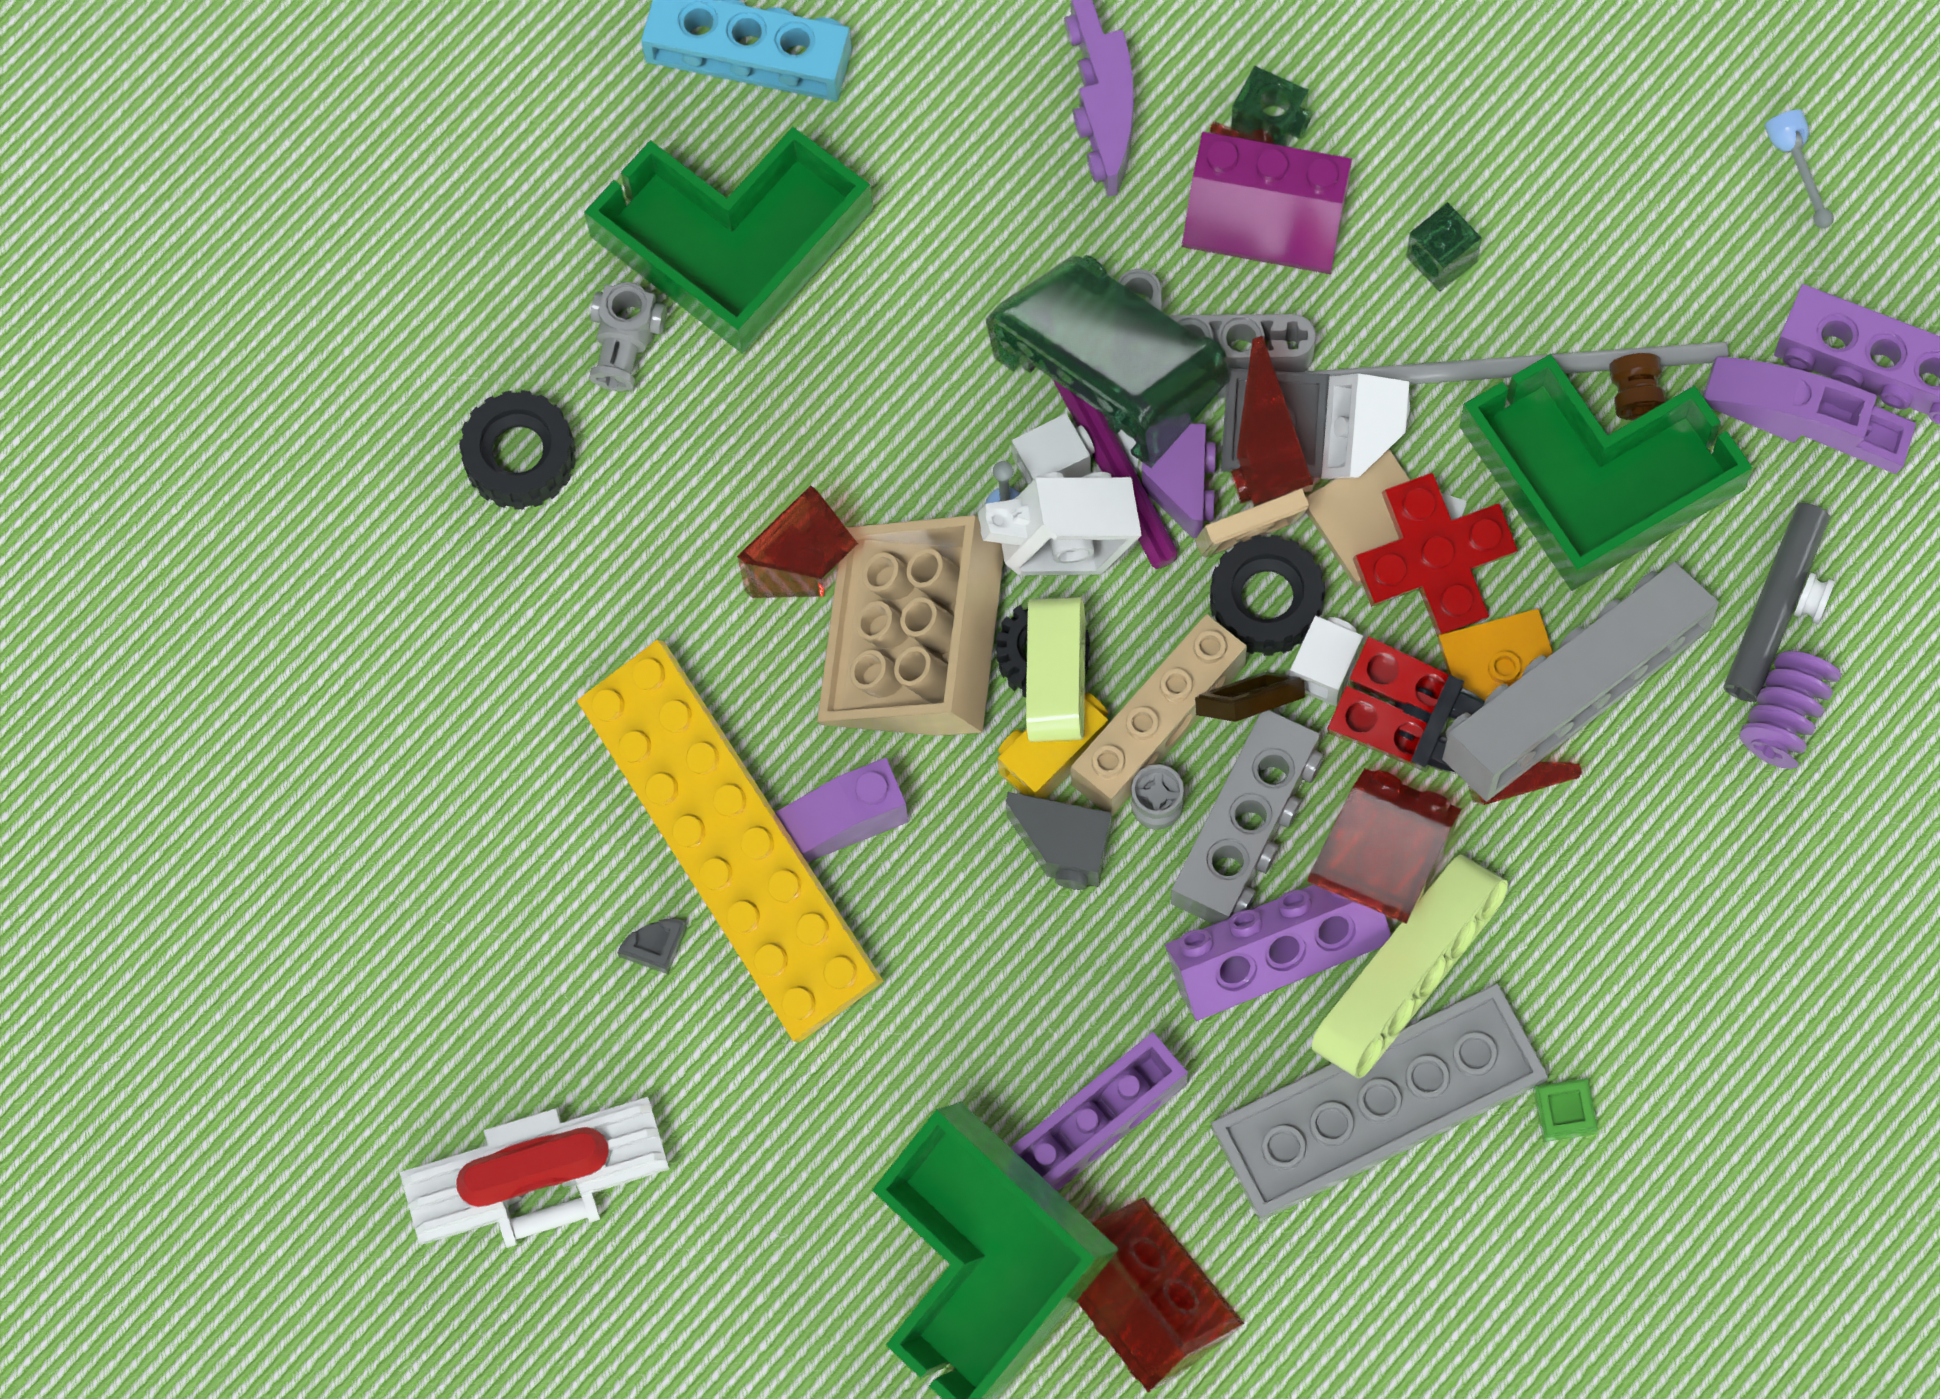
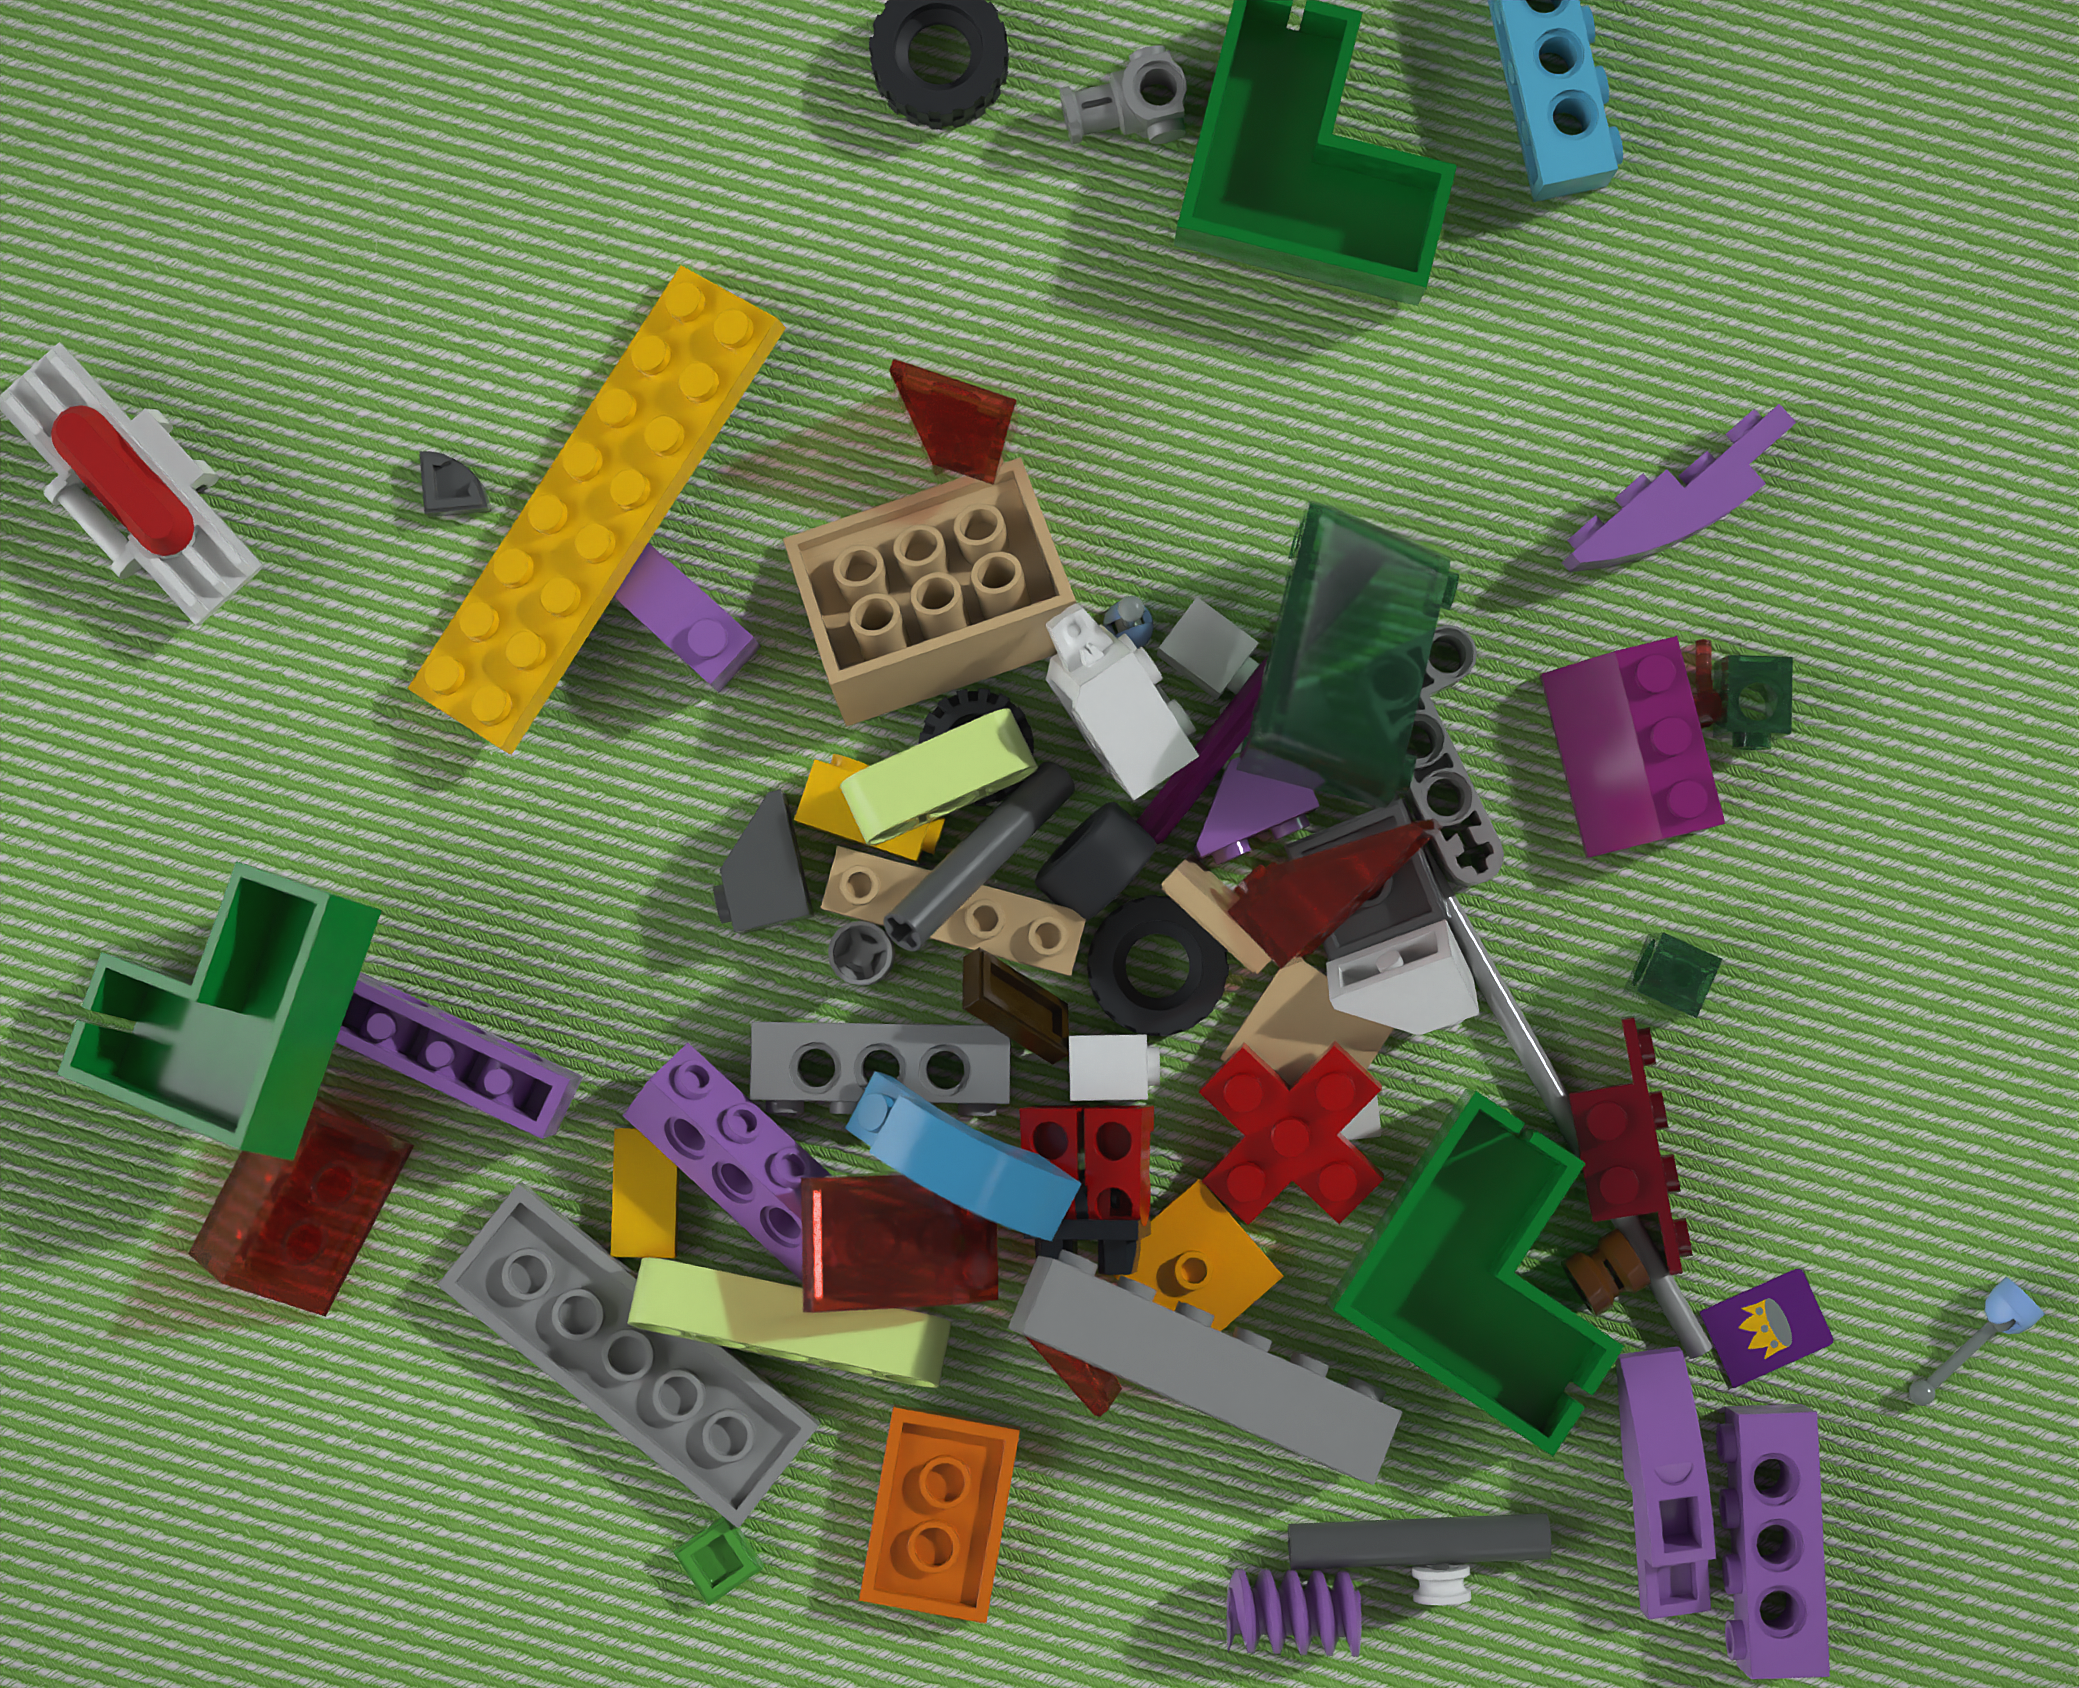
camera: 65 degrees right, 15 degrees up
(1129, 668) = (978, 856): none -> dark grey piece
(1169, 596) = (1096, 861): none -> black tyre
(1262, 1041) = (643, 1198): none -> yellow tile
(1341, 771) = (960, 1162): none -> dark azure arch
(1541, 328) = (1623, 1152): none -> dark red bracket
(1603, 929) = (939, 1513): none -> orange plate
(1729, 301) = (1767, 1327): none -> dark purple sticker

